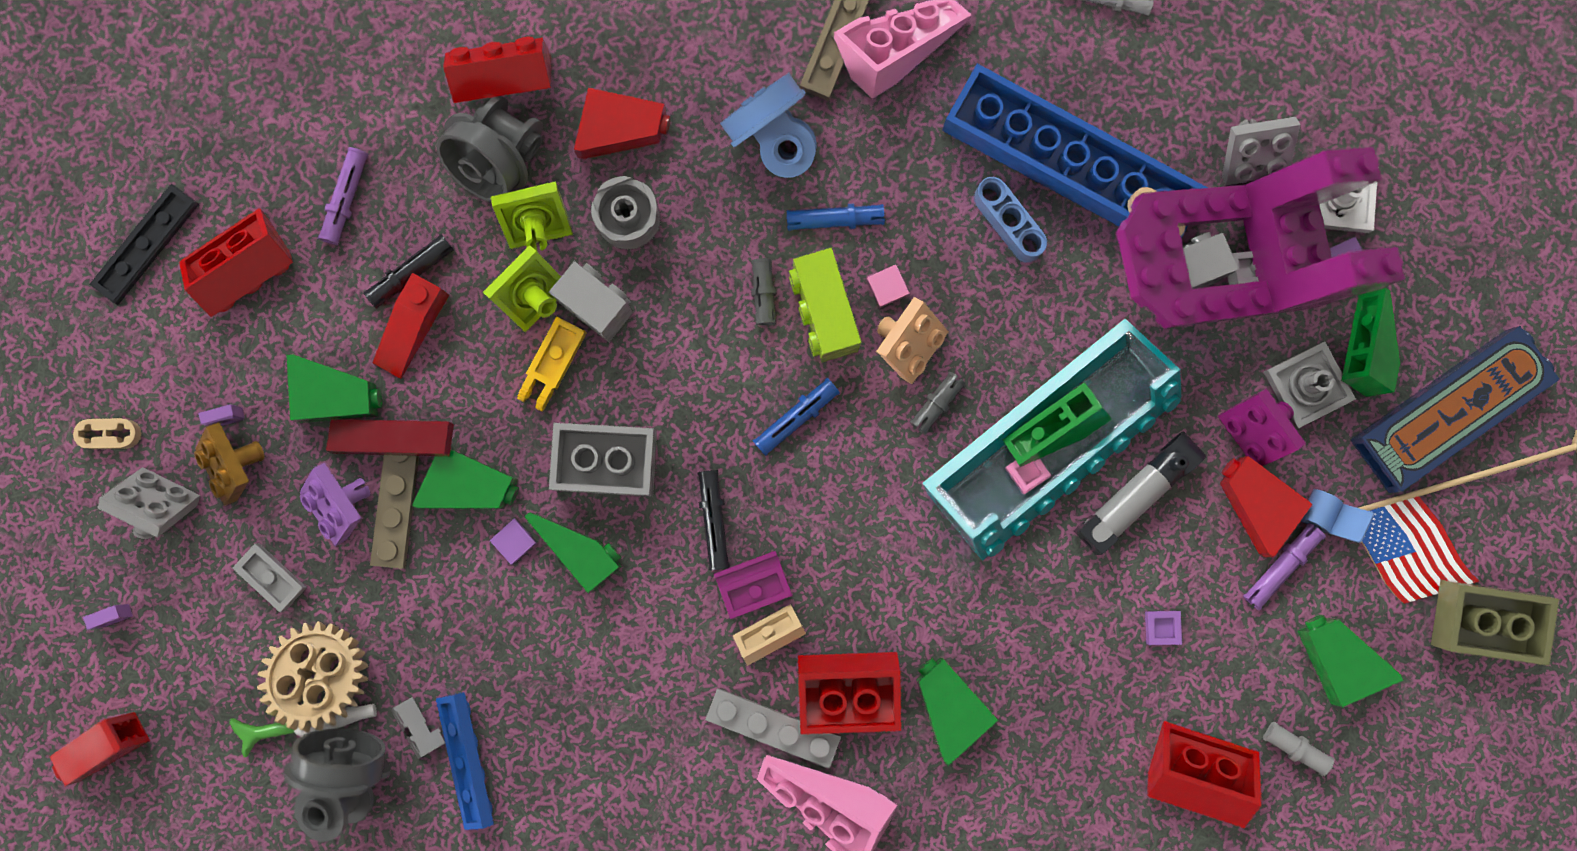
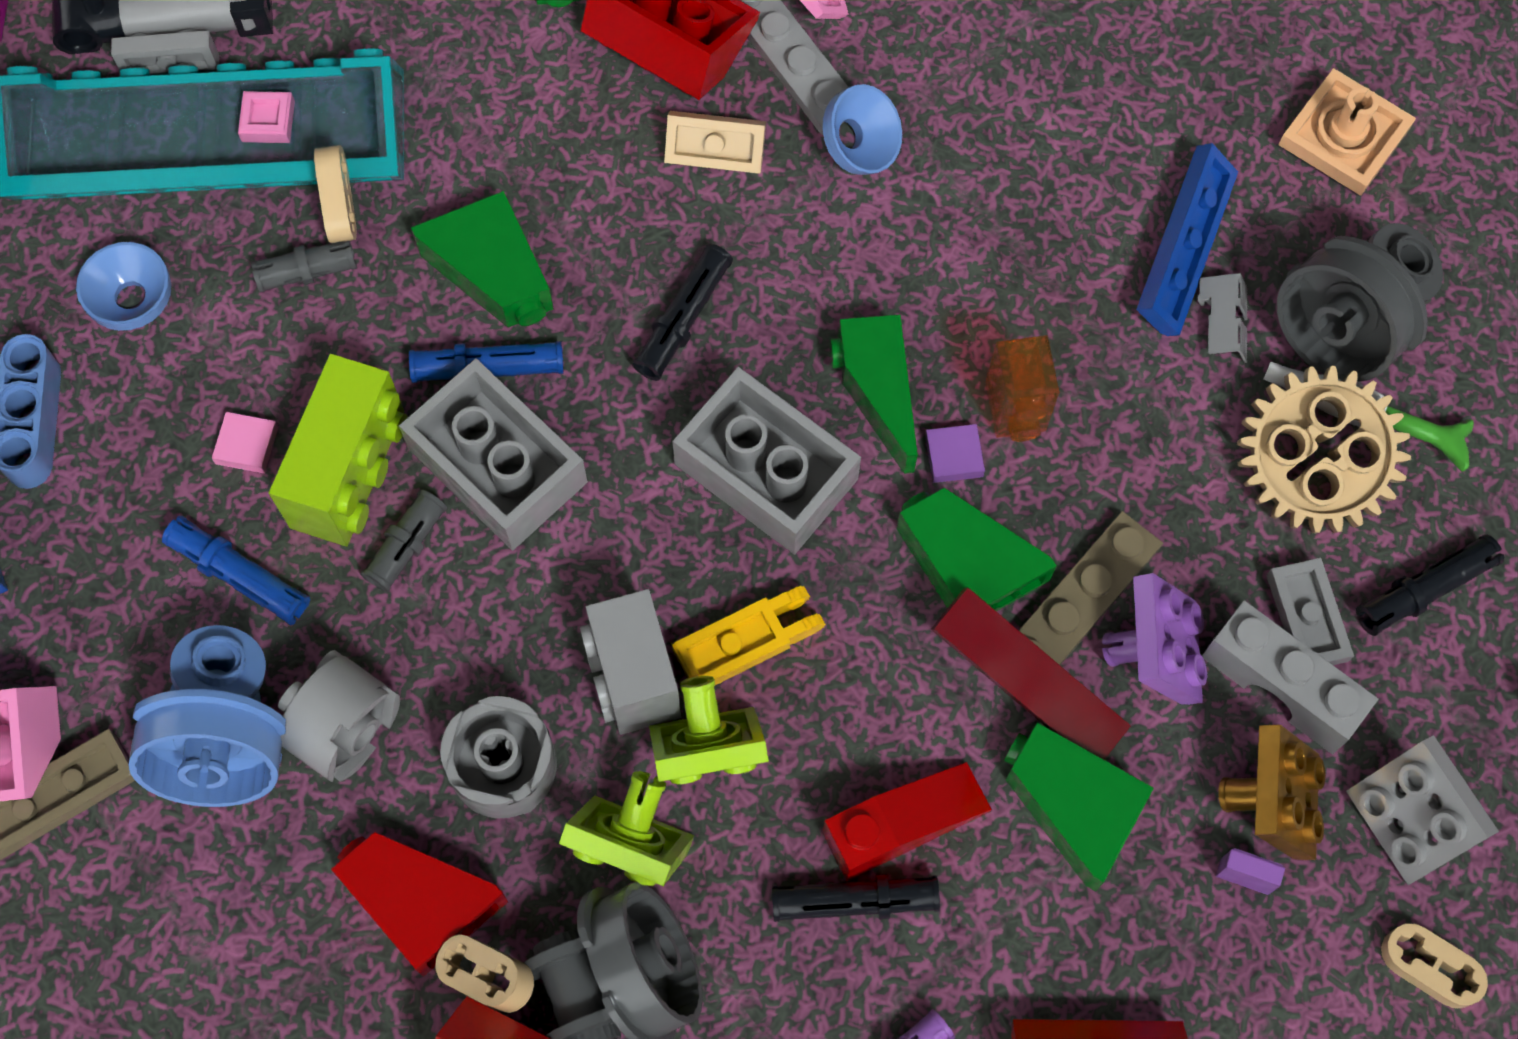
camera: 145 degrees left, 15 degrees down
(221, 628) = (1413, 594): none -> black pin
(258, 531) = (1319, 695): none -> light grey arch
(492, 594) = (1022, 387): none -> clear orange brick
(551, 105) = (479, 983): none -> tan beam
(680, 697) = (875, 128): none -> medium blue piece
(717, 174) = (336, 716): none -> light grey brick
(747, 363) = (494, 454): none -> light grey brick
(753, 584) = (691, 208): magenta plate -> none
(837, 473) = (487, 259): none -> green slope
(911, 340) = (272, 346): light nougat plate -> none
(944, 444) = (335, 193): none -> tan beam
(1029, 307) = (113, 270): none -> medium blue piece
(1058, 426) = (188, 130): green slope -> none
(1127, 461) = (166, 50): none -> light grey plate

